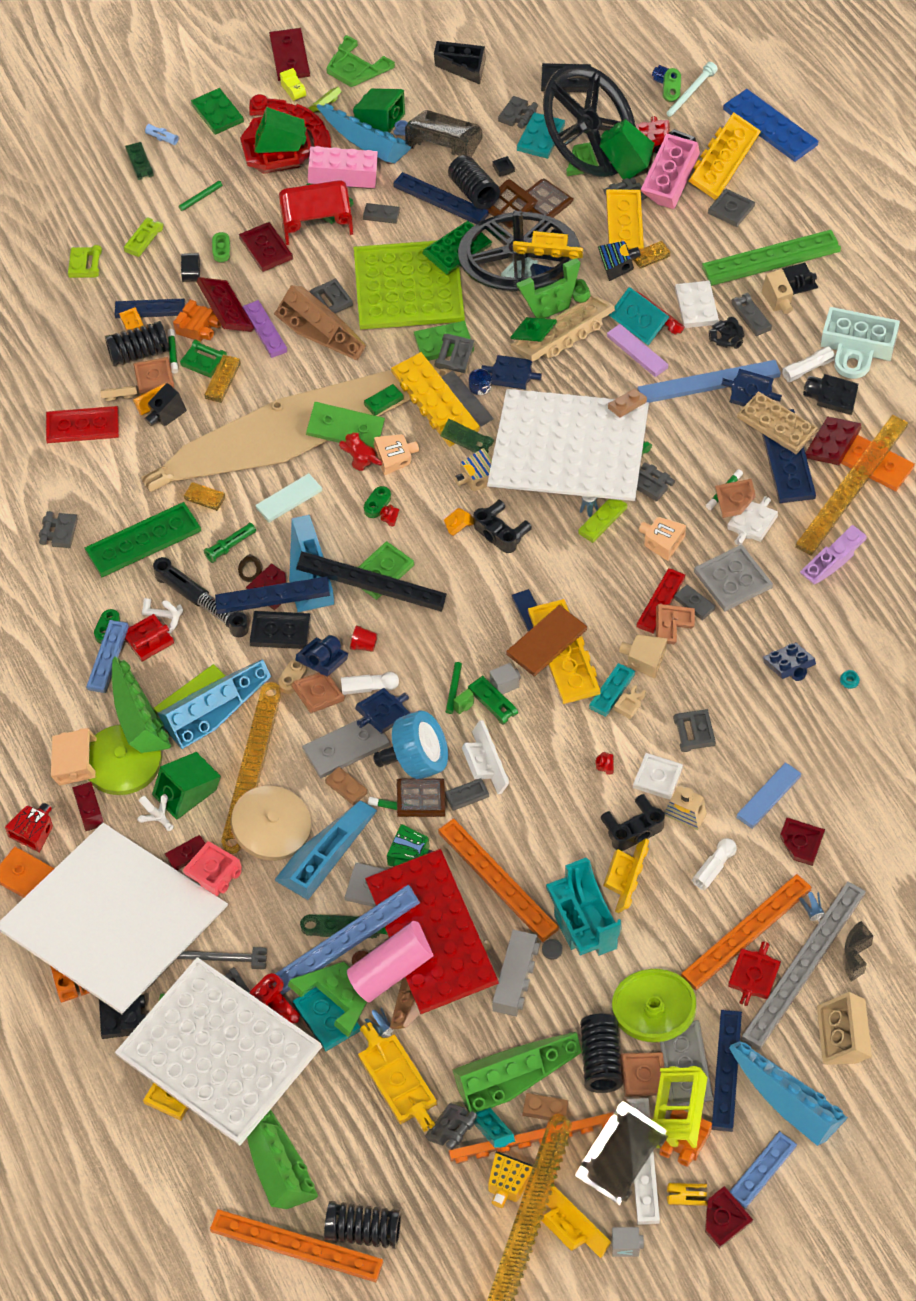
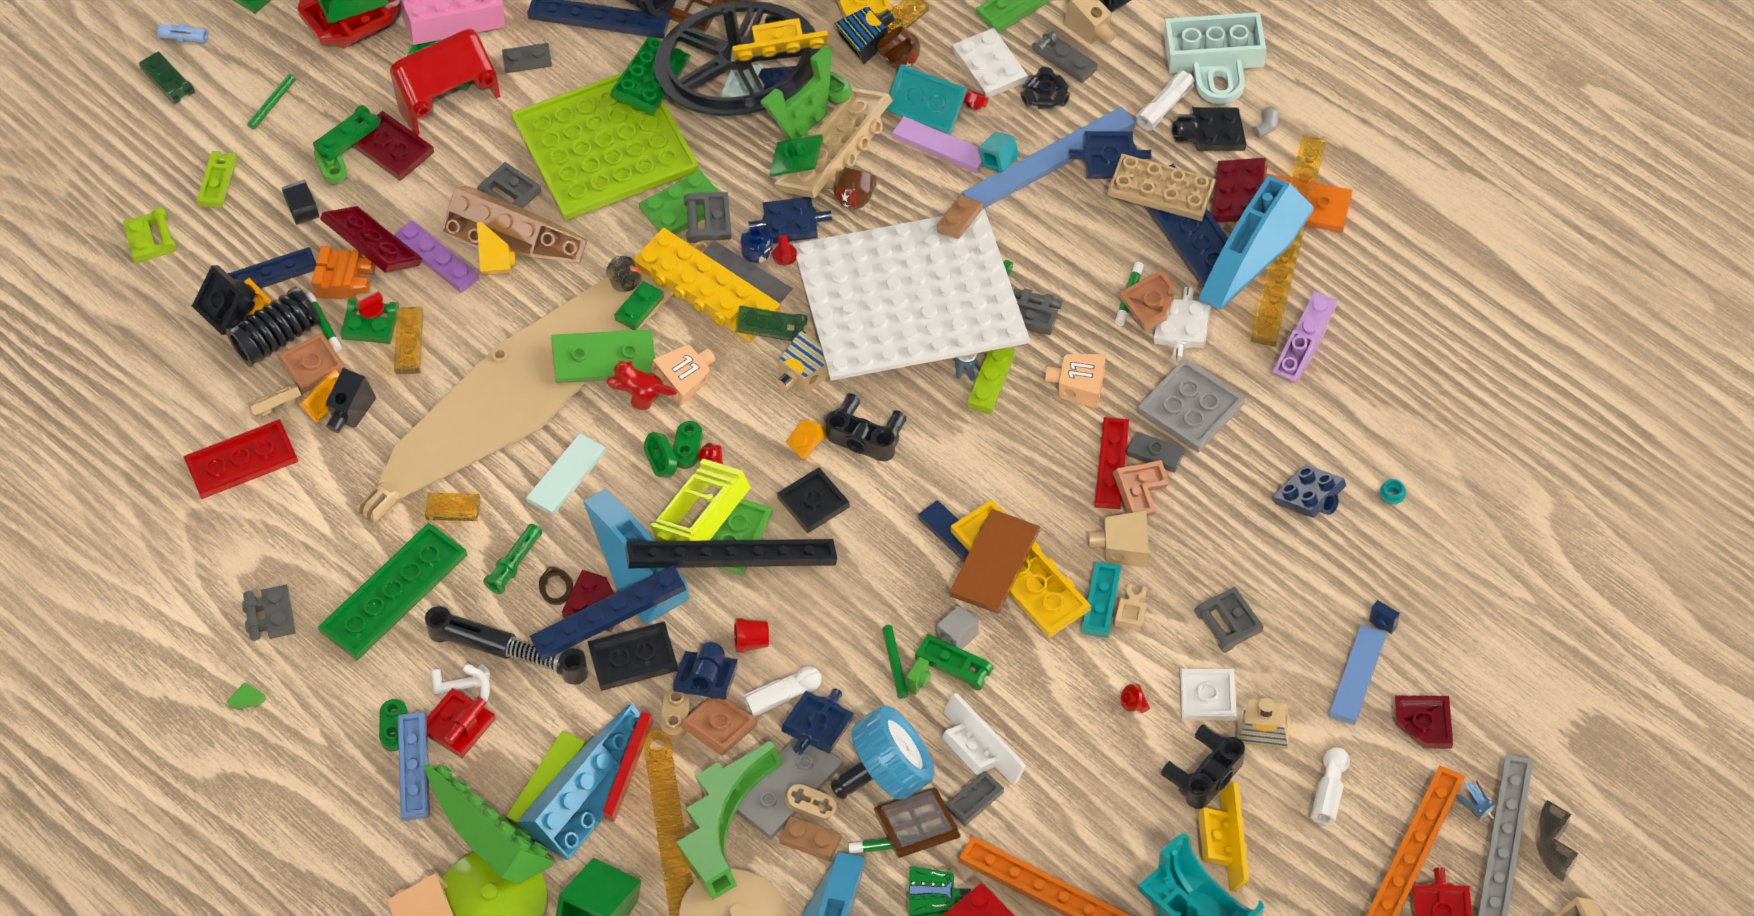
camera: 20 degrees left, 0 degrees up
(20, 579) = (246, 697): none -> bright green tile
(111, 316) = (223, 299): none -> black plate
(205, 348) = (371, 305): none -> red plate
(239, 229) = (346, 133): none -> green plate
(243, 699) = (627, 766): none -> red tile
(284, 749) = (711, 816): none -> bright green arch
(301, 337) = (494, 253): none -> yellow slope
(352, 766) = (808, 808): none -> tan beam
(355, 503) = (660, 455): none -> green plate
(381, 375) = (622, 272): none -> clear smoke head
(391, 539) = (733, 489): none -> neon yellow door
(444, 563) = (813, 500): none -> black plate
(498, 393) = (784, 253): none -> red plate
(562, 362) = (854, 188): none -> reddish brown helmet
(636, 276) = (899, 47): none -> reddish brown helmet
(674, 366) = (998, 151): none -> teal brick
(803, 762) = (1384, 617): none -> dark blue plate
(825, 477) = (1257, 240): none -> dark azure wedge
(877, 400) = (1270, 122): none -> light grey arm

